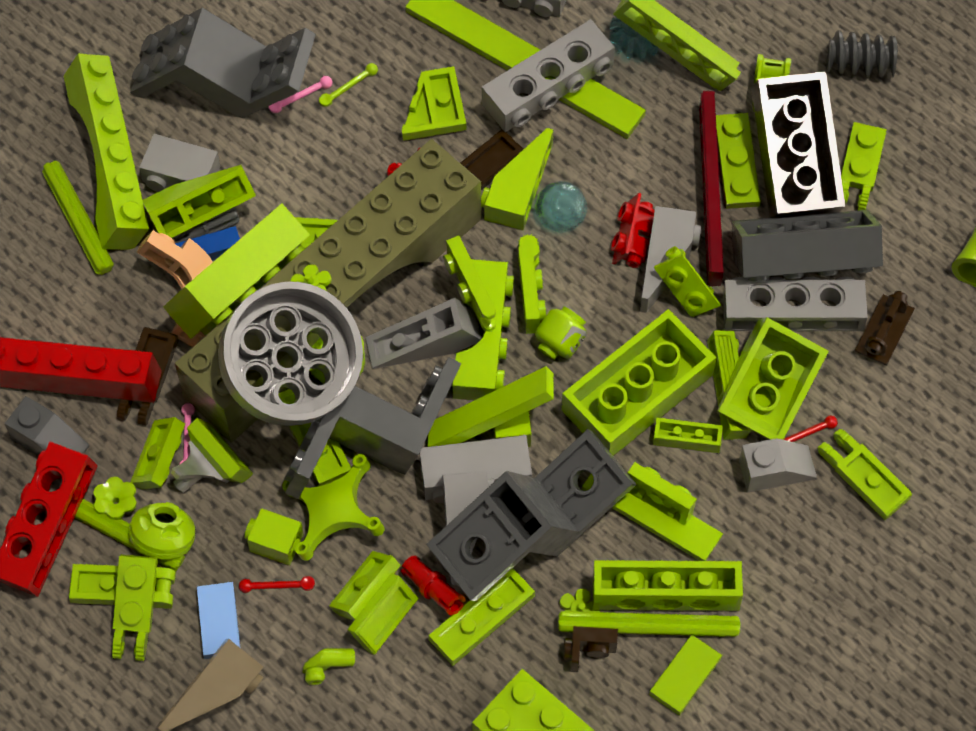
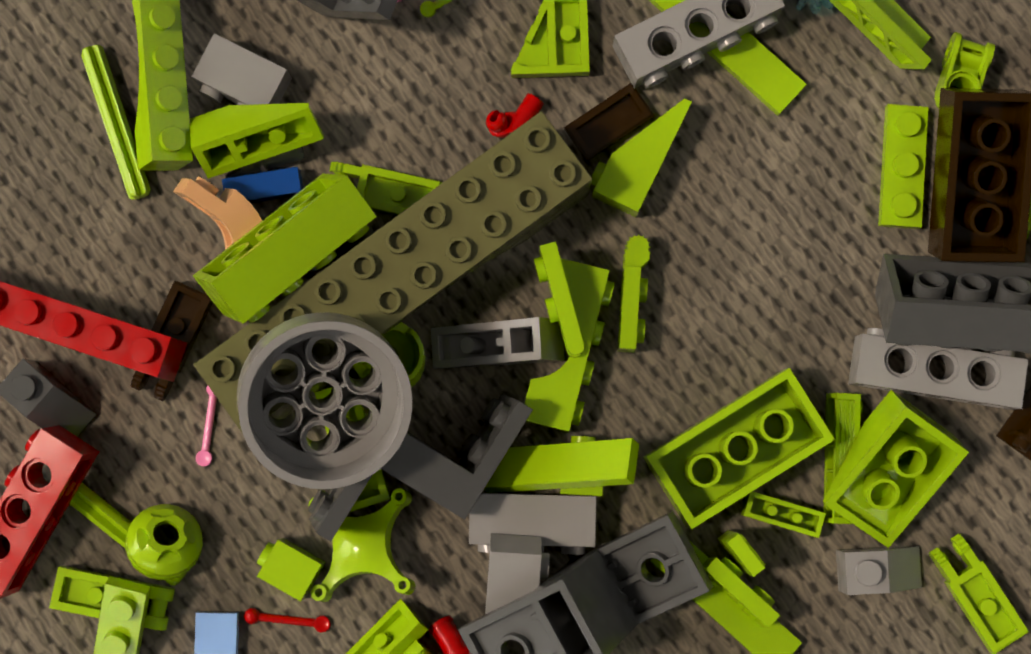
camera: 10 degrees right, 20 degrees up
(115, 491) = (105, 490): lime plant -> none
(158, 453) = (171, 443): lime plate -> none
(208, 458) = (228, 461): lime piece -> none
(313, 277) = (366, 291): lime plant -> none
(560, 333) = (657, 364): lime head -> none
(561, 207) = (684, 196): clear light blue hair -> none
(634, 219) = (768, 225): red hinge -> none
(656, 455) = (742, 552): none -> lime tile
(669, 229) = (804, 270): light grey slope -> none
(686, 283) = (816, 328): lime hinge -> none
(711, 189) = (866, 202): dark red tile -> none
(829, 422) = (949, 521): red hinge -> none

